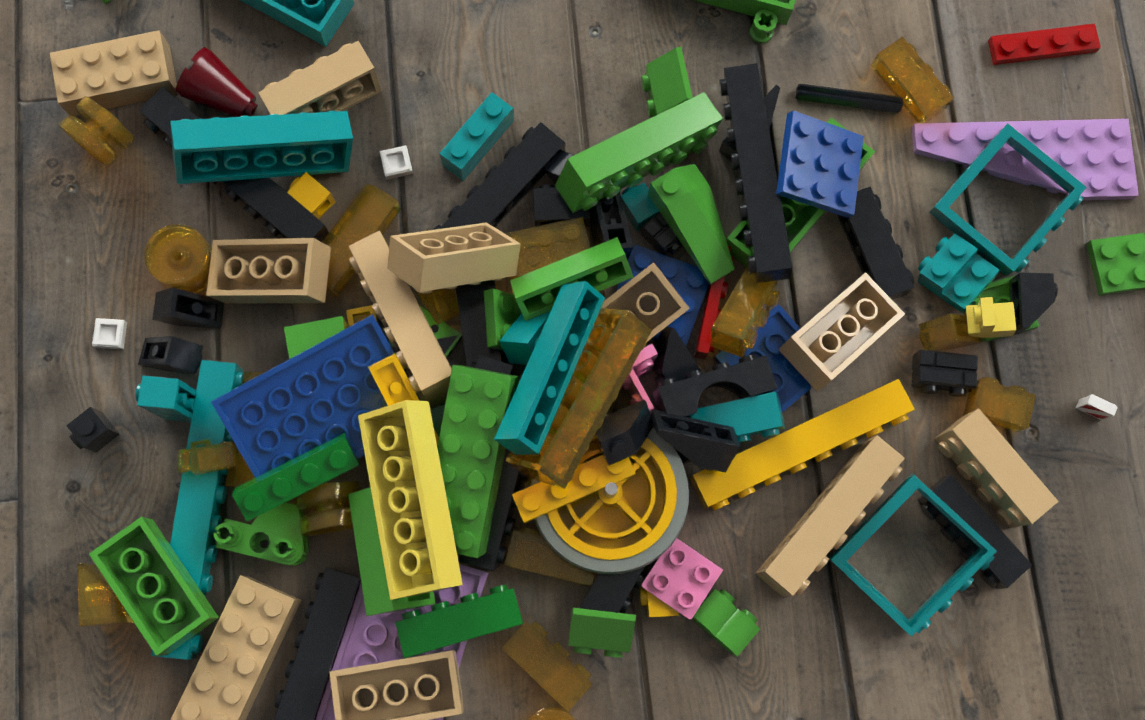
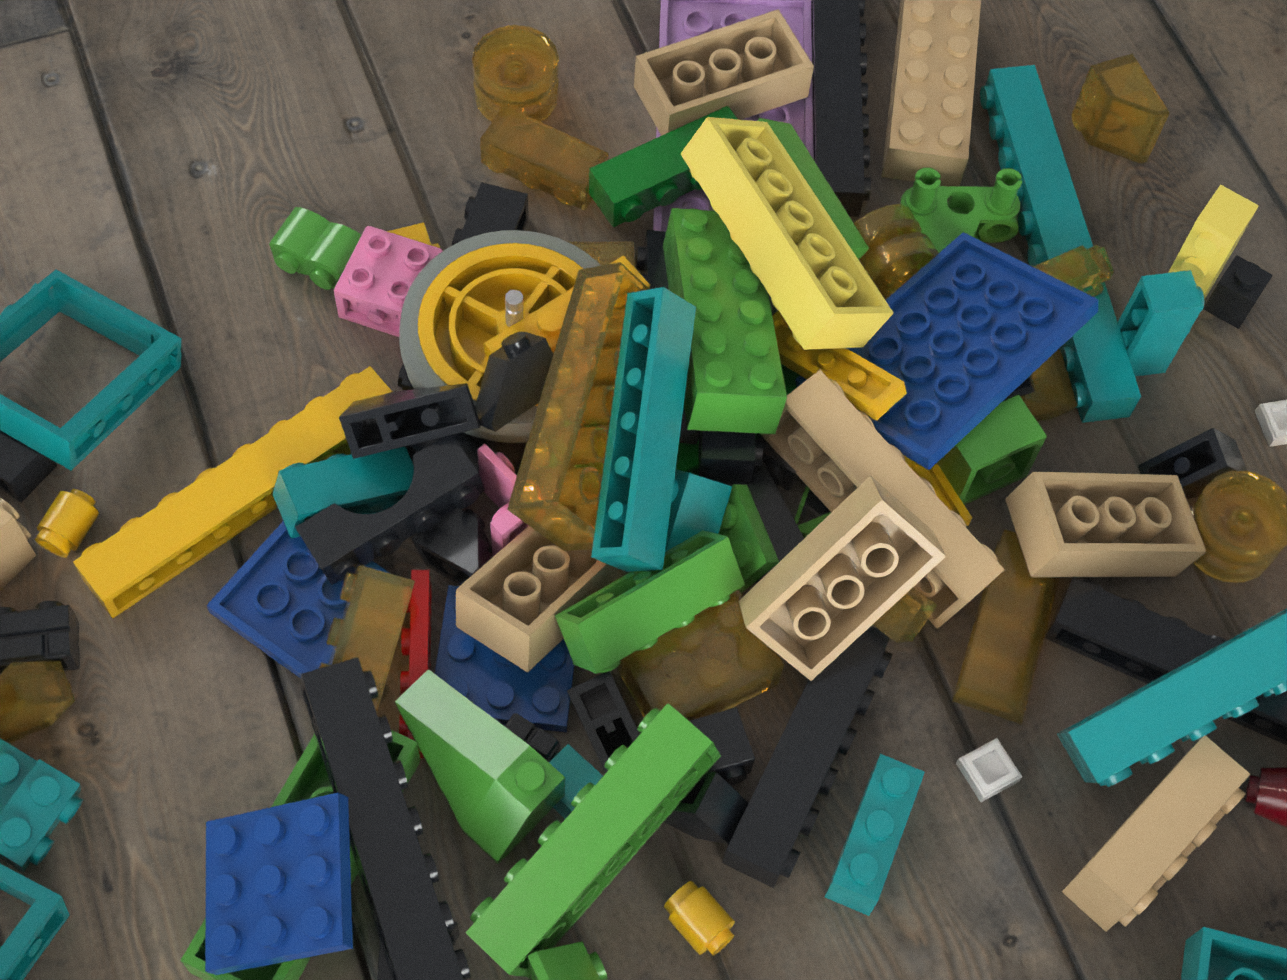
camera: 165 degrees right, 15 degrees down
(116, 430) = (1214, 237): none -> light yellow brick
(153, 586) = (1066, 113): bright green brick -> none
(171, 354) = (1185, 404): black slope -> none
(295, 477) = (946, 250): green brick -> none
(311, 195) = (1097, 672): yellow brick -> none
(588, 118) = (700, 918): none -> yellow brick
(601, 631) = (486, 183): bright green slope -> none
(830, 516) = (187, 390): tan brick -> none
(841, 332) = (201, 645): tan brick -> none
(874, 246) = (158, 811): black brick -> none
(916, 447) = (66, 522): none -> yellow brick

